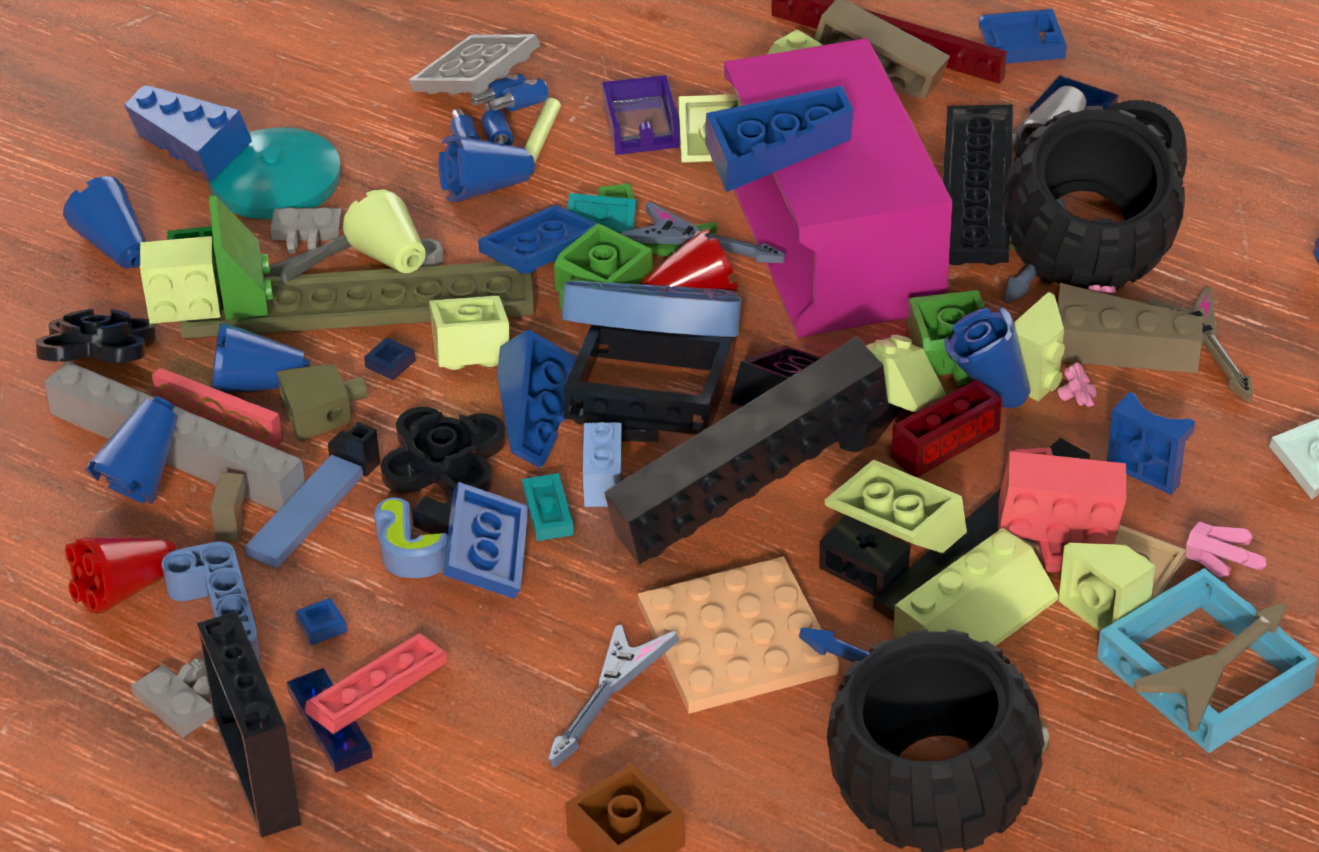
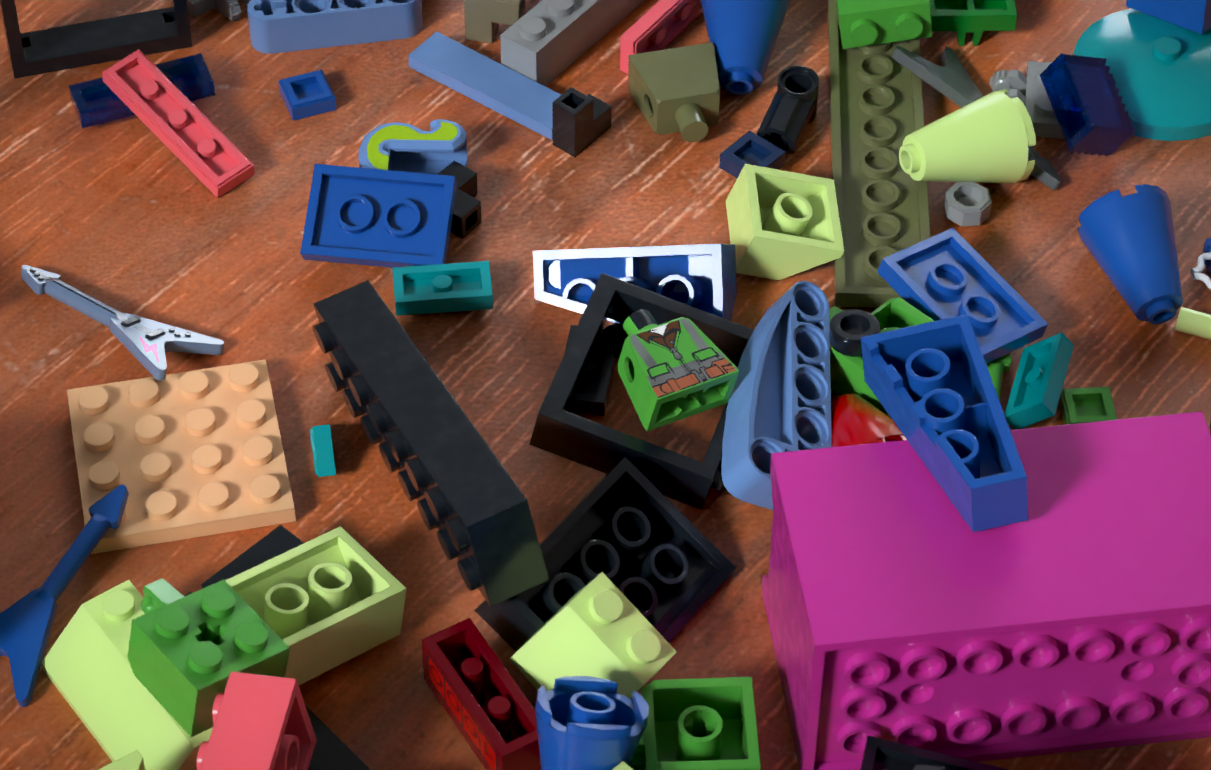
camera: 95 degrees right, 5 degrees up
(327, 339) = (791, 108): none -> black piece
(331, 188) = (1087, 104): none -> clear blue brick
(442, 451) = (562, 197): black plant -> none
(601, 461) = (499, 337): light blue brick -> none
(602, 267) = (848, 328): none -> black tile
(660, 343) = (672, 370): none -> bright green torso
(720, 548) = (322, 450): none -> teal tile
(976, 525) = (192, 644): none -> bright green hinge

